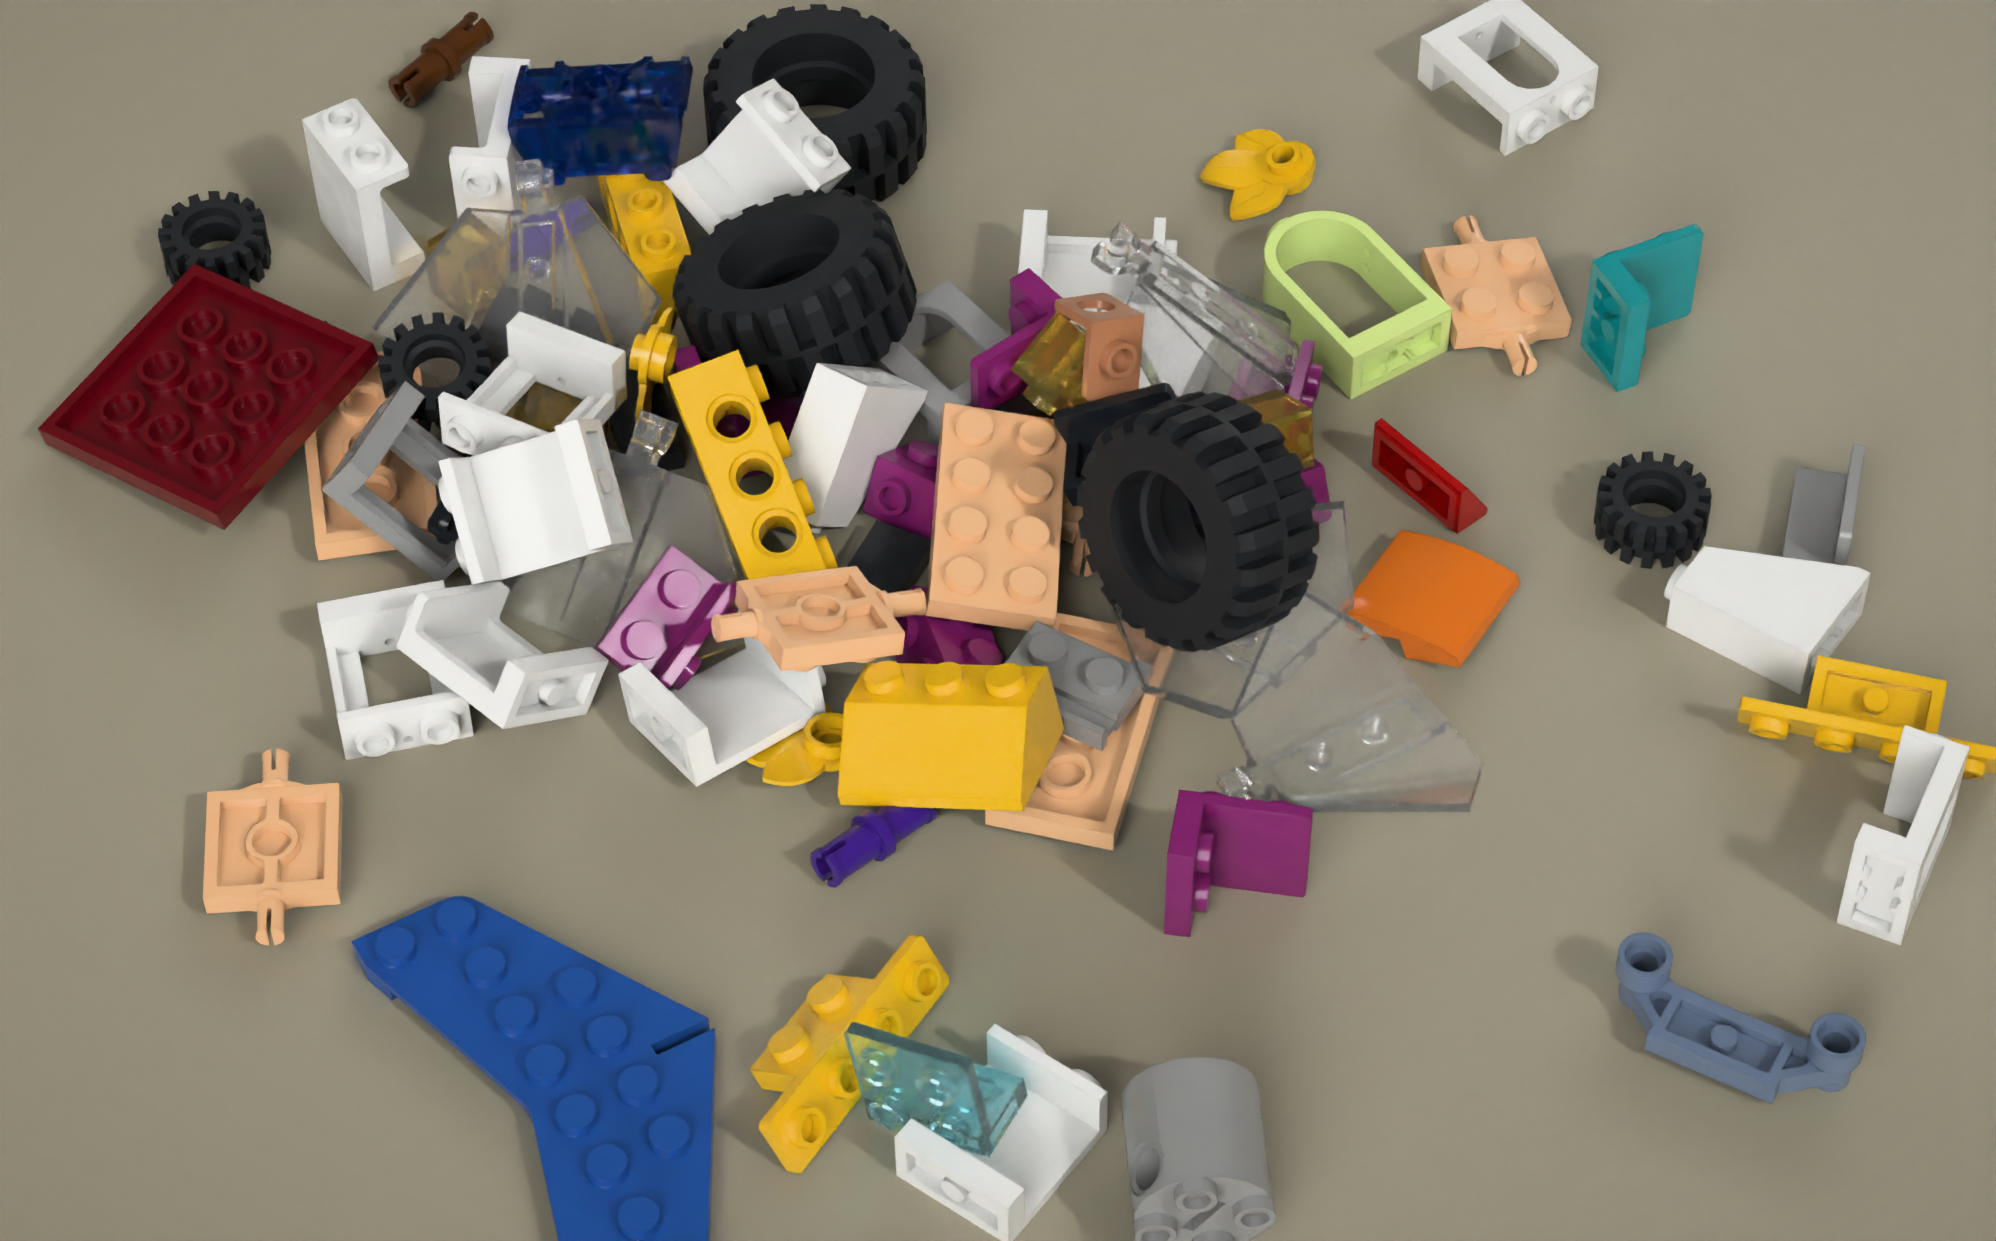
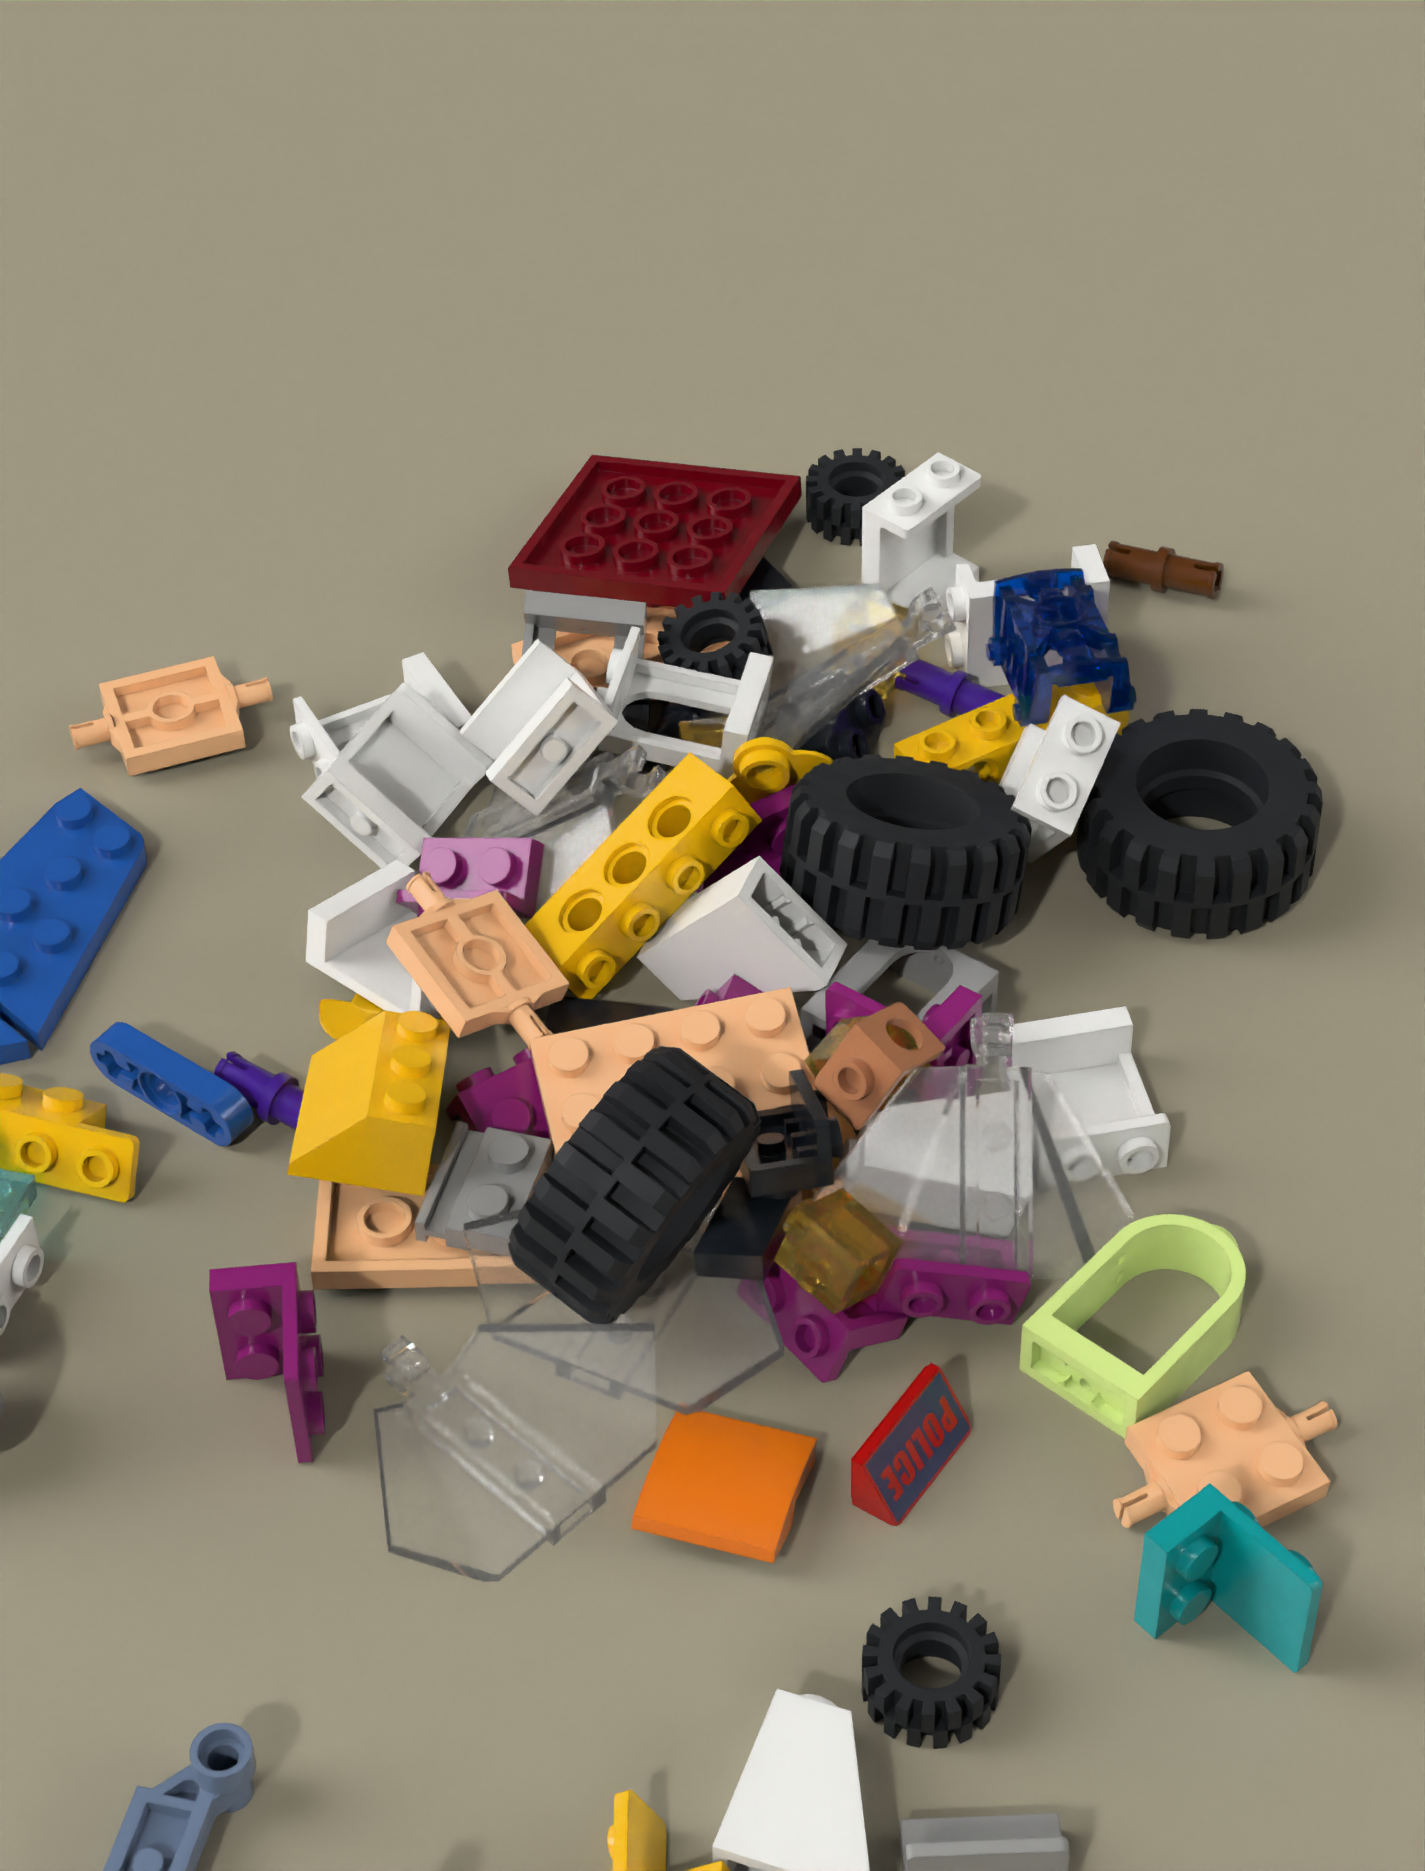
camera: 75 degrees right, 5 degrees down
(823, 915) = (171, 1083): none -> blue beam
(1260, 171) = (1320, 1212): yellow plate -> none

